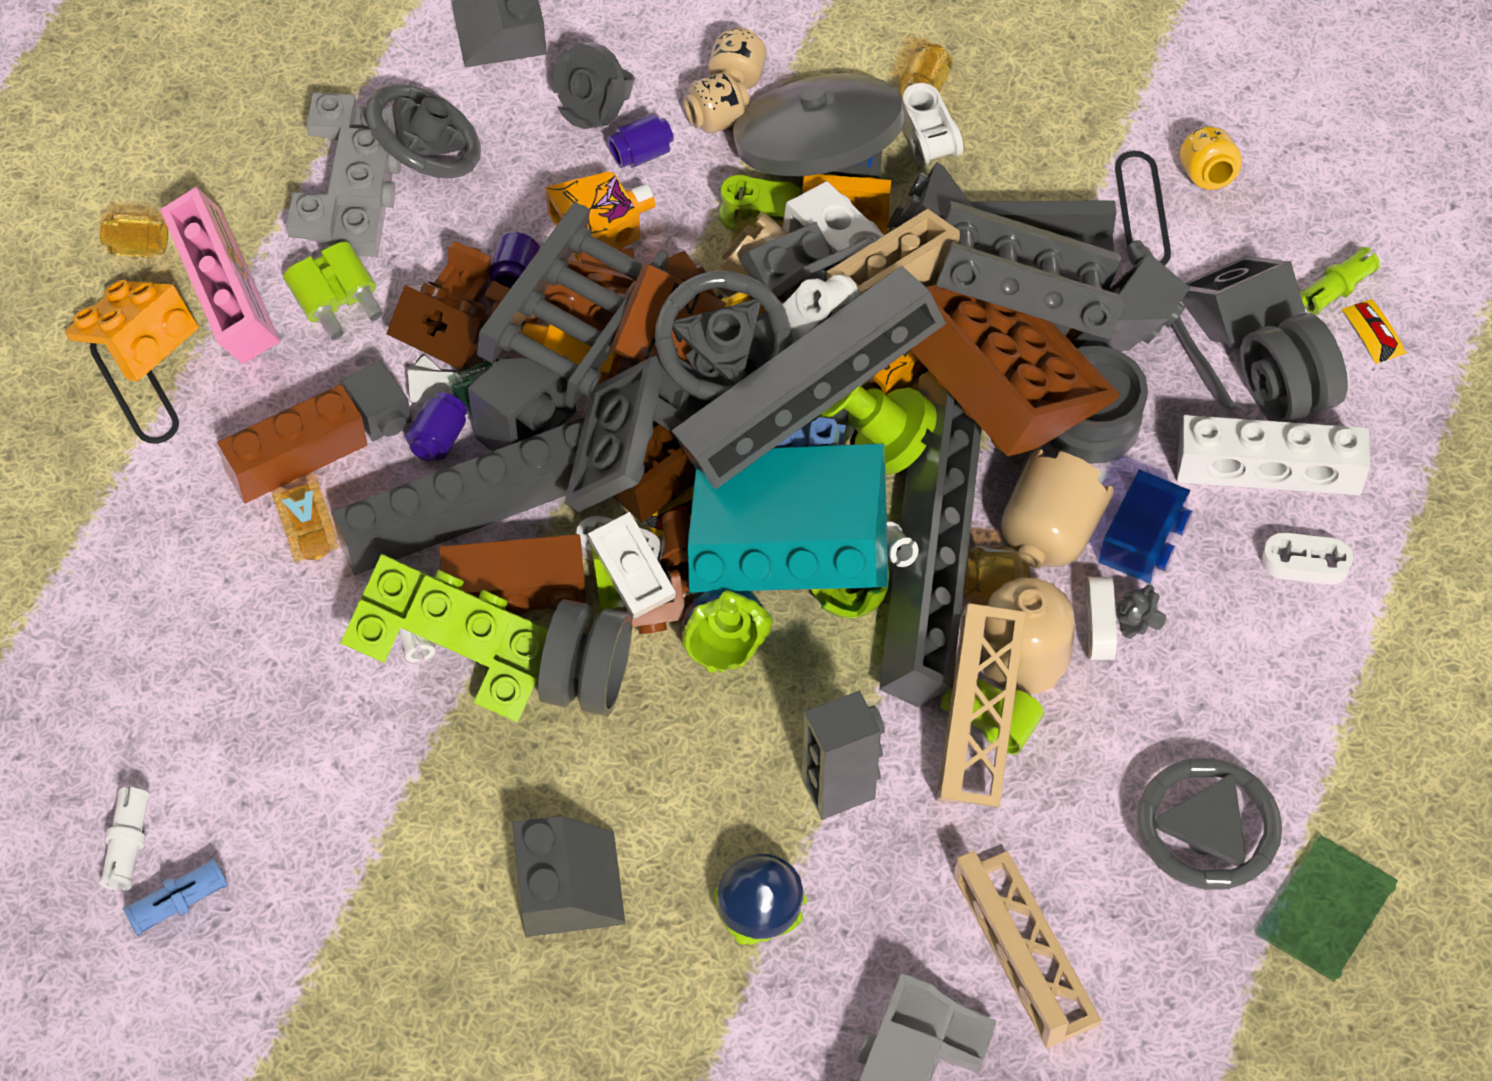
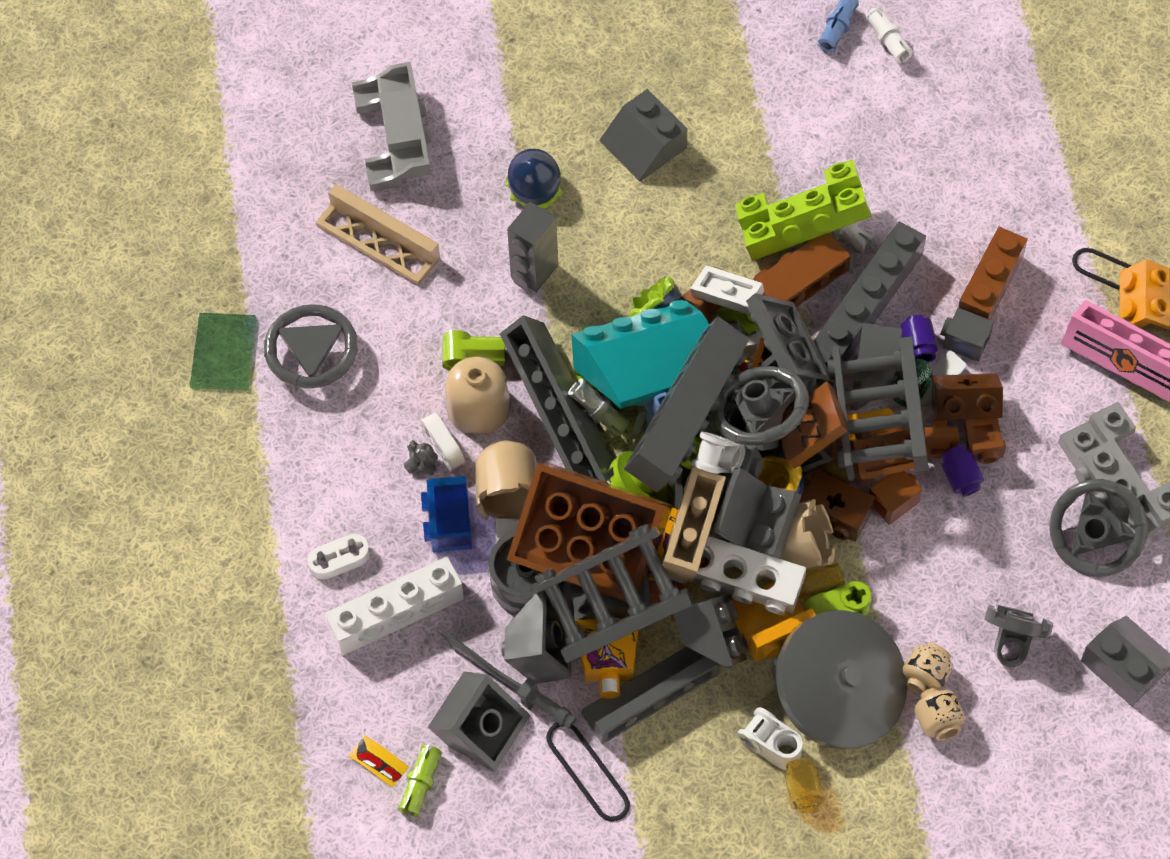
camera: 150 degrees right, 5 degrees up
(305, 522) = (944, 240): clear yellow brick -> none
(331, 282) = (1064, 398): lime piece -> none
(585, 657) = (717, 235): dark grey wheel -> none
(613, 210) = (939, 538): light orange torso -> none
(640, 141) = (956, 613): dark purple brick -> none
(962, 703) = (478, 315): tan fence -> none
(989, 569) = (522, 426): clear yellow head -> none
(1210, 158) = (560, 826): yellow head -> none
(1294, 368) = (409, 662): dark grey wheel -> none

